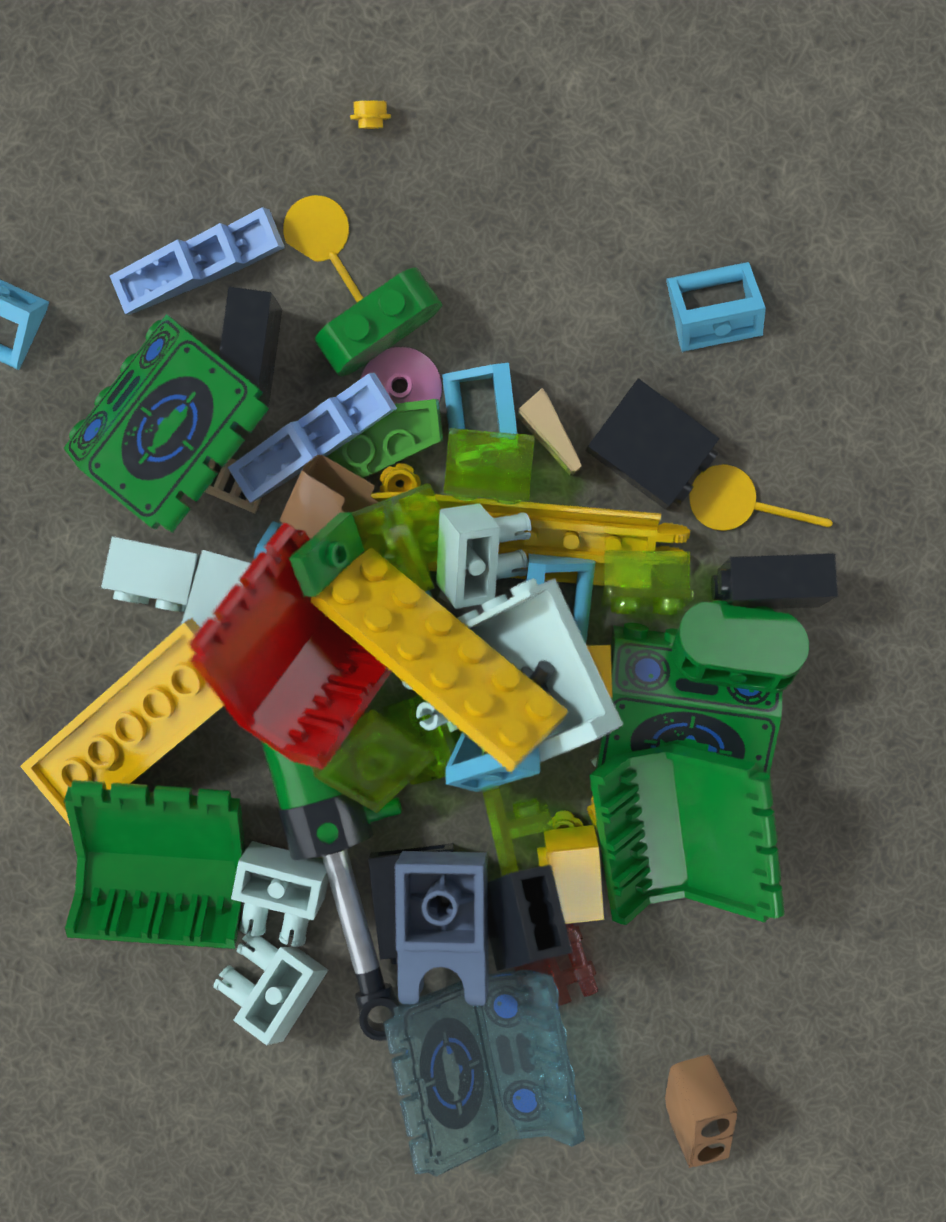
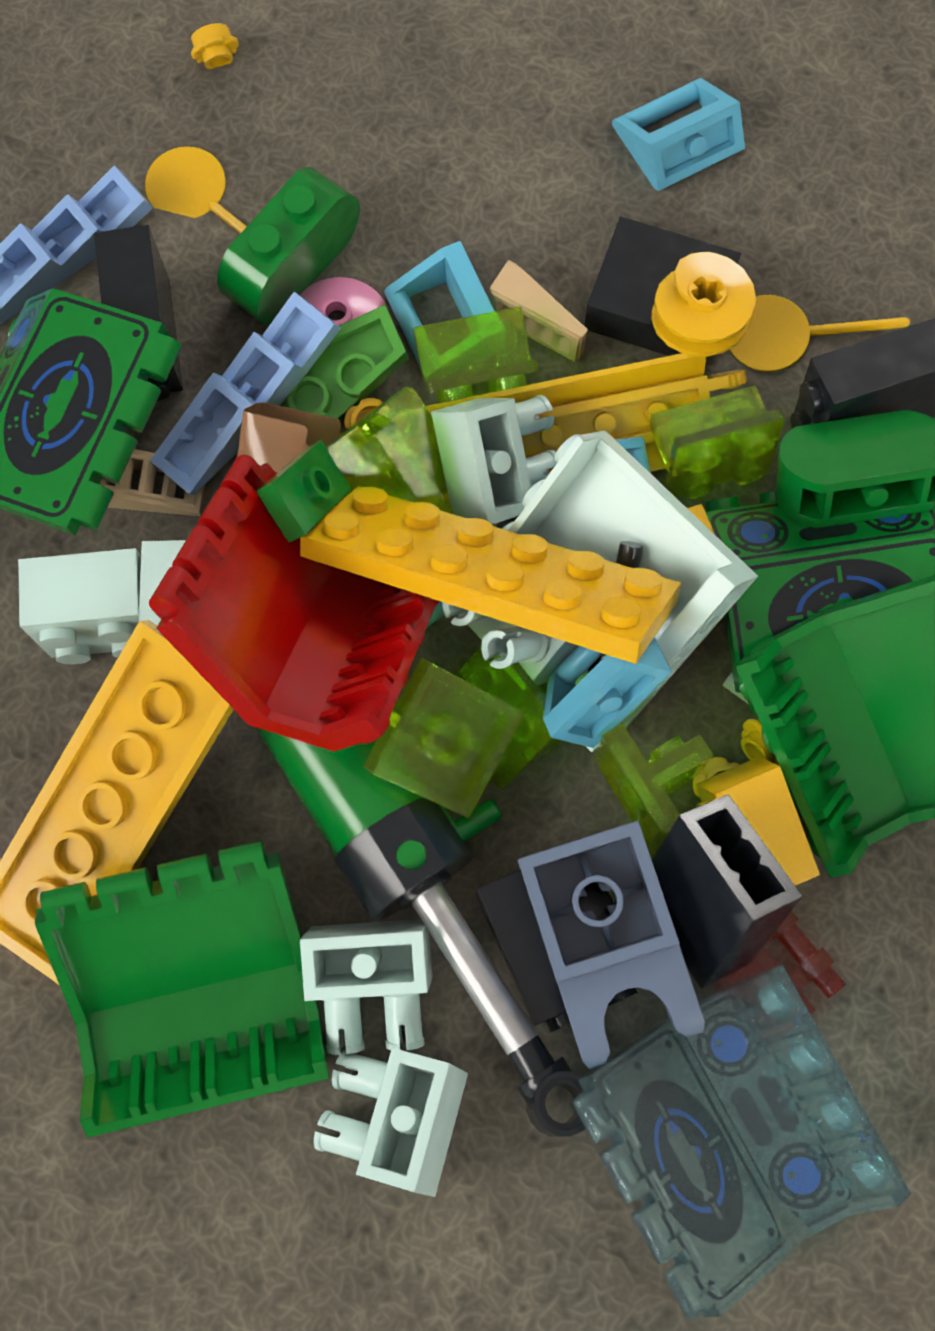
camera: 15 degrees left, 15 degrees down
(680, 465) = (704, 305): none -> yellow piece

